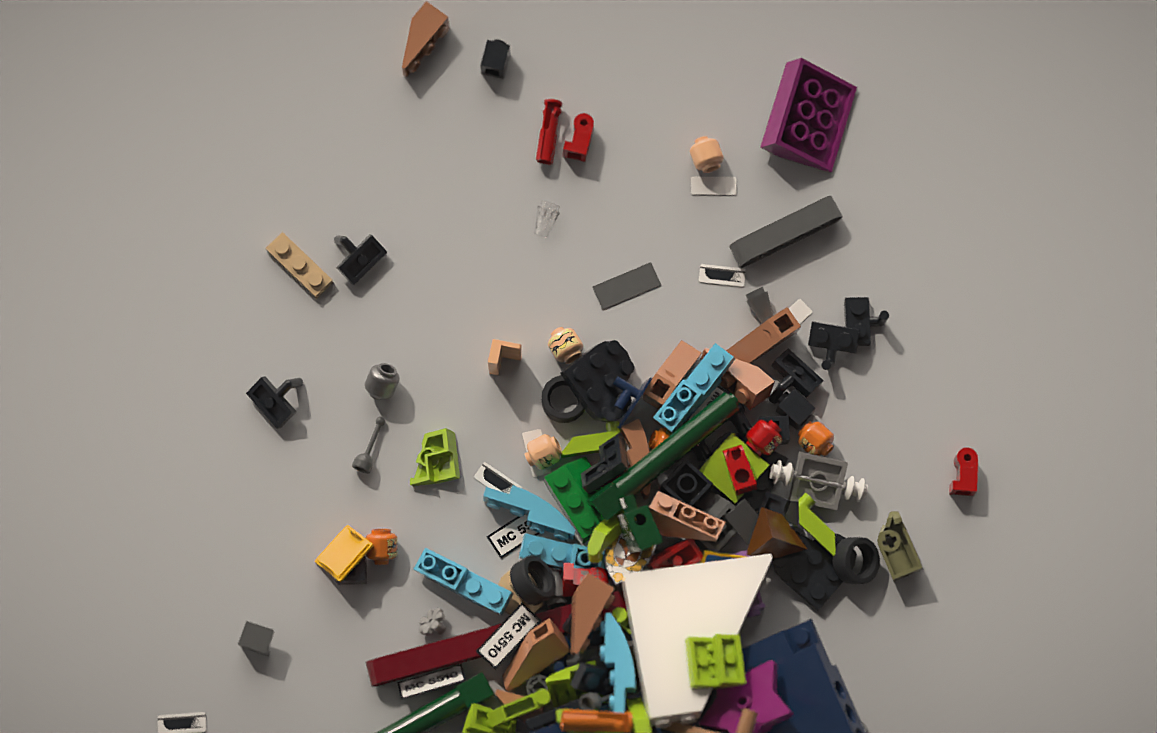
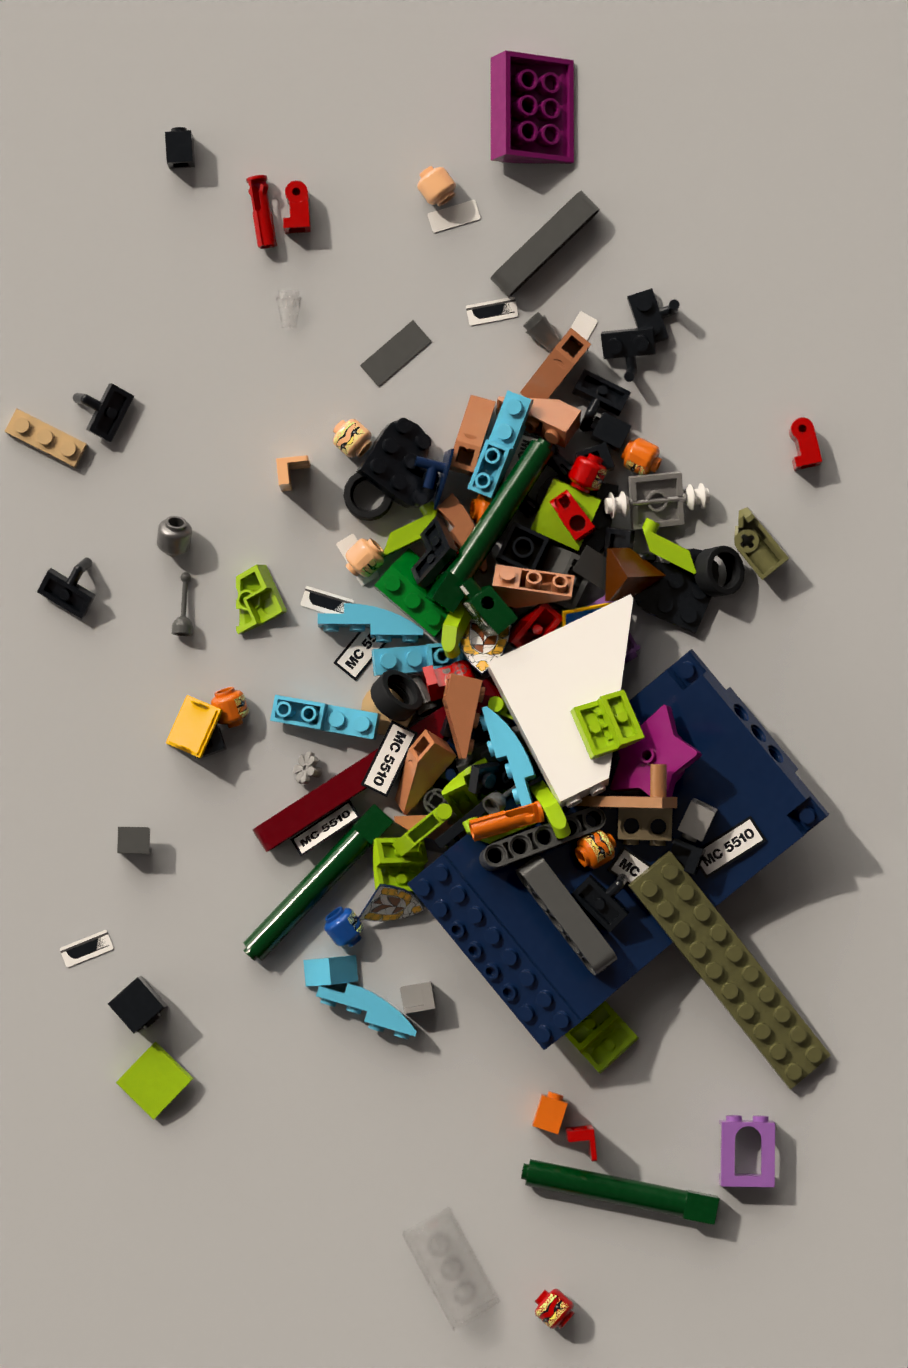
camera: 15 degrees left, 10 degrees up
(424, 31) = (94, 140): nougat slope -> none

